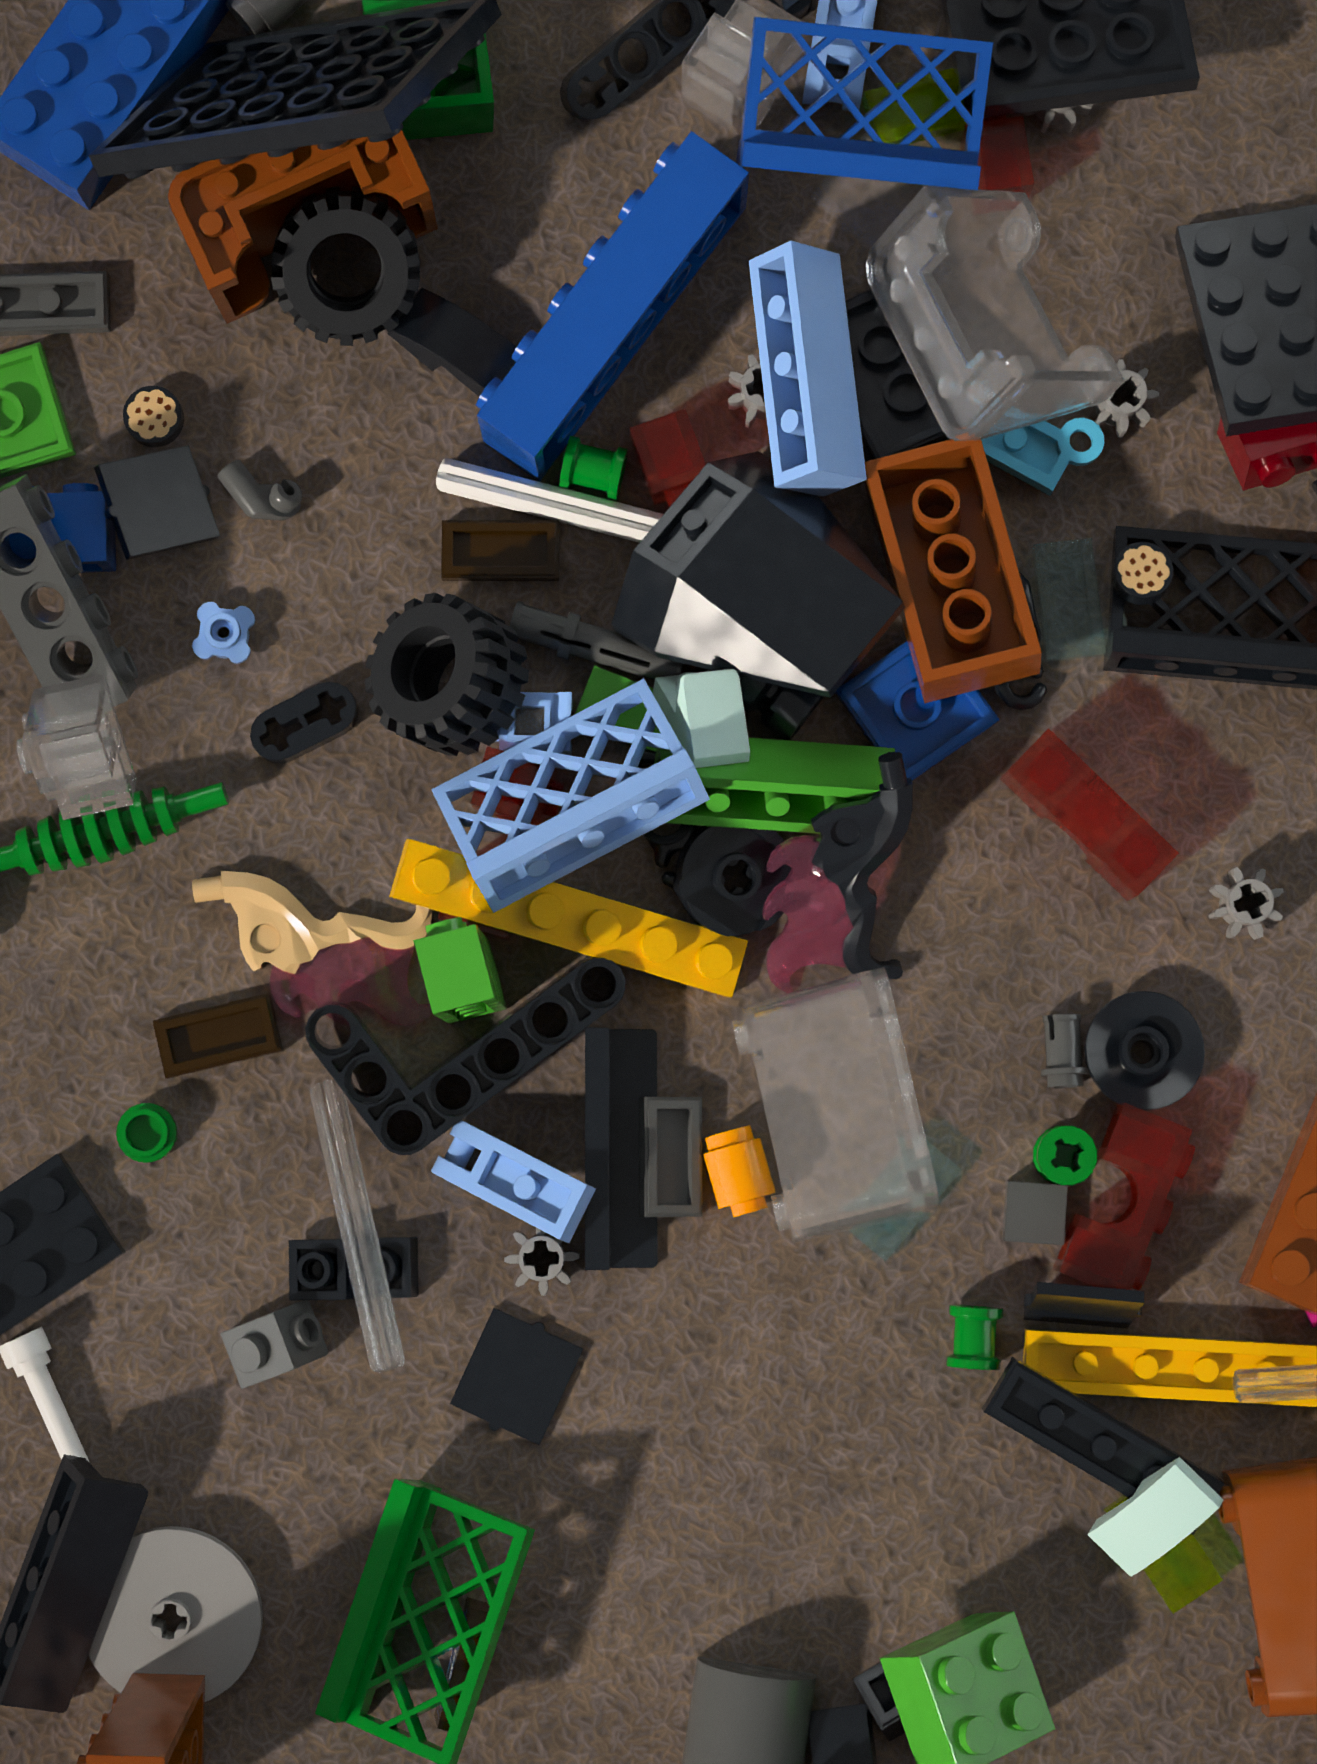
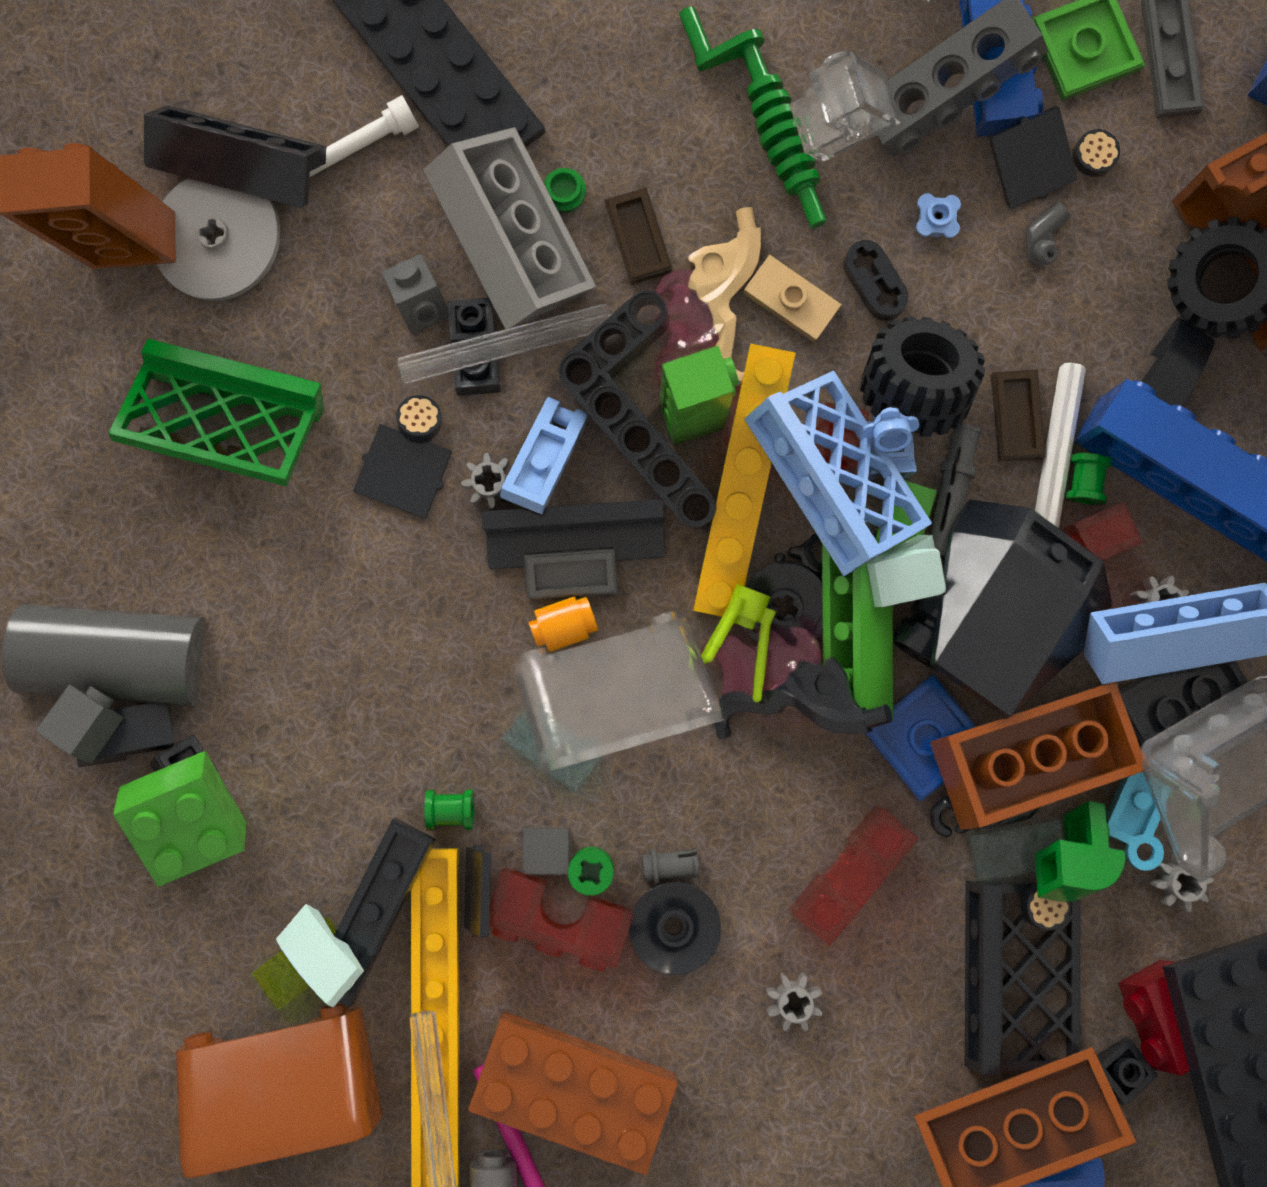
camera: 85 degrees right, 0 degrees up
(198, 1209) = (508, 226): none -> light grey slope
(320, 835) = (792, 298): none -> tan plate
(447, 1349) = (419, 418): none -> tile
(520, 721) = (891, 430): none -> light blue plate
(740, 931) = (745, 609): none -> lime plant
(1091, 520) = (1082, 861): none -> green brick

